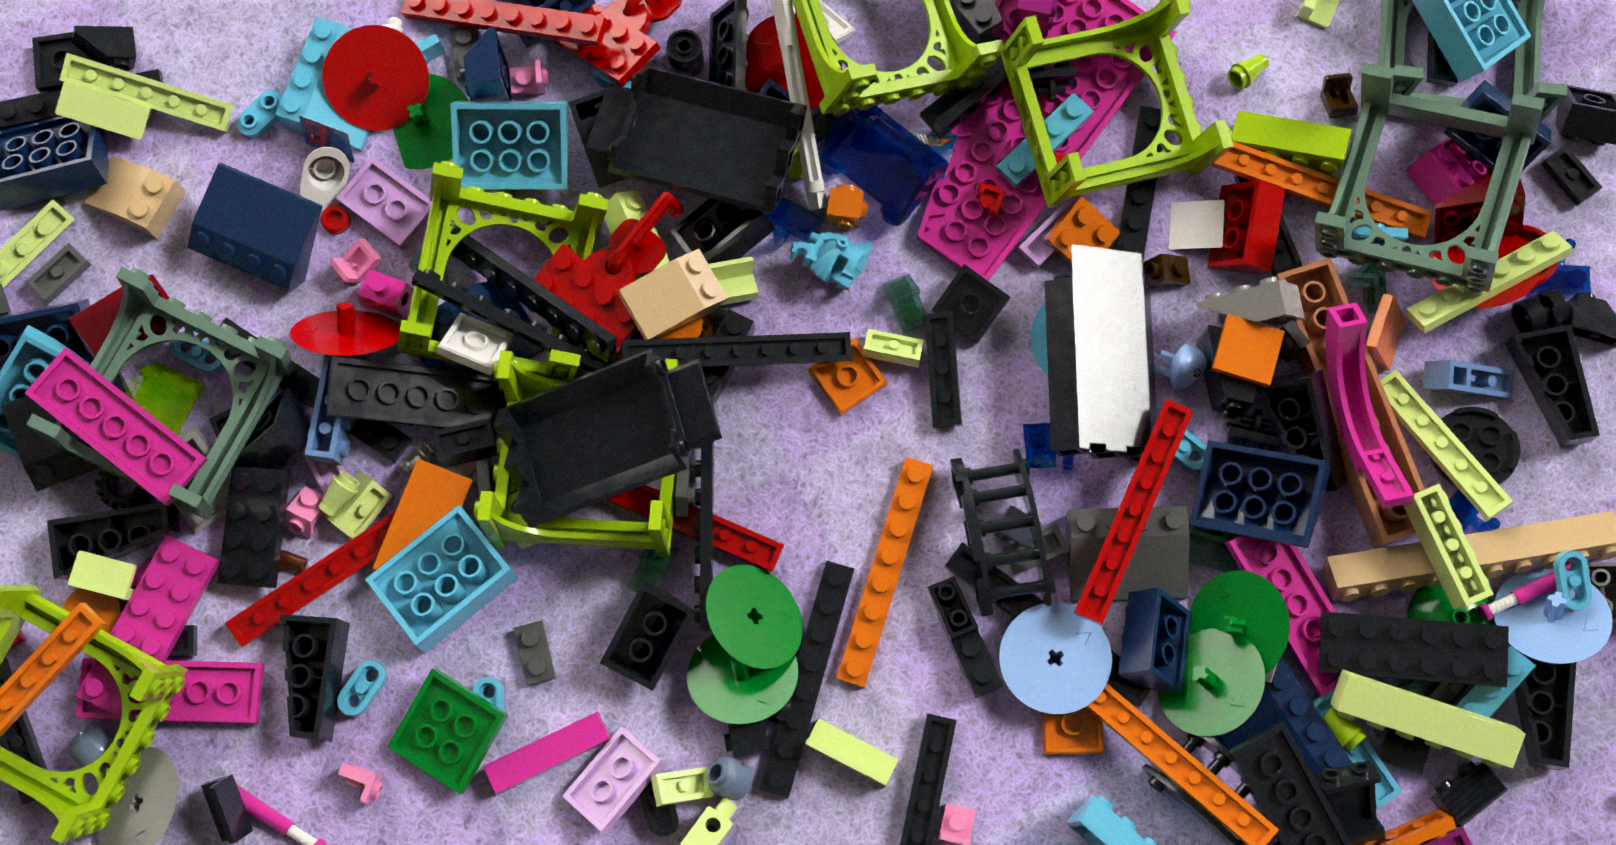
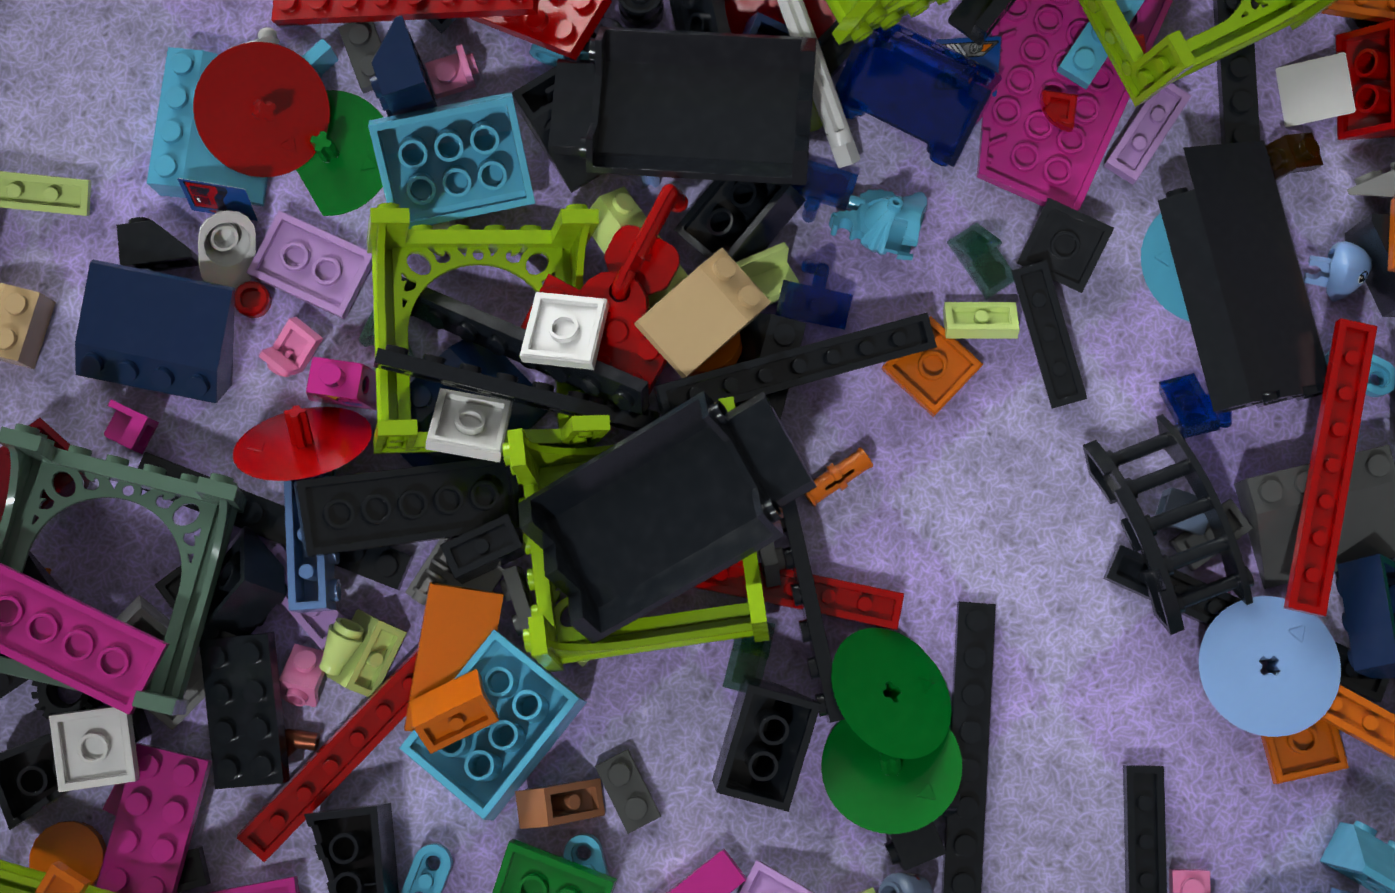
camera: 10 degrees left, 5 degrees up
(103, 575) = (70, 813): yellowish green panel -> none
(132, 528) = (93, 748): none -> white plate
(168, 394) = (94, 566): clear neon green hinge -> none
(196, 356) = (118, 509): medium azure plate -> none
(219, 297) = (130, 427): none -> dark pink panel
(263, 115) = (130, 185): medium azure plate -> none
(267, 162) = (149, 245): none -> black slope
(411, 559) = (452, 711): none -> orange panel
(479, 650) = (559, 803): none -> nougat slope
(563, 286) = (564, 330): none -> white tile
(753, 445) = (839, 475): none -> orange pin
(766, 307) = (813, 301): none -> clear blue plate
(846, 207) = (883, 154): orange brick -> none
(851, 752) = (1043, 832): yellowish green panel -> none
(884, 573) = (1032, 600): orange plate -> none
(964, 637) = (1149, 662): black slope -> none
(1081, 226) = (1178, 123): orange plate -> none

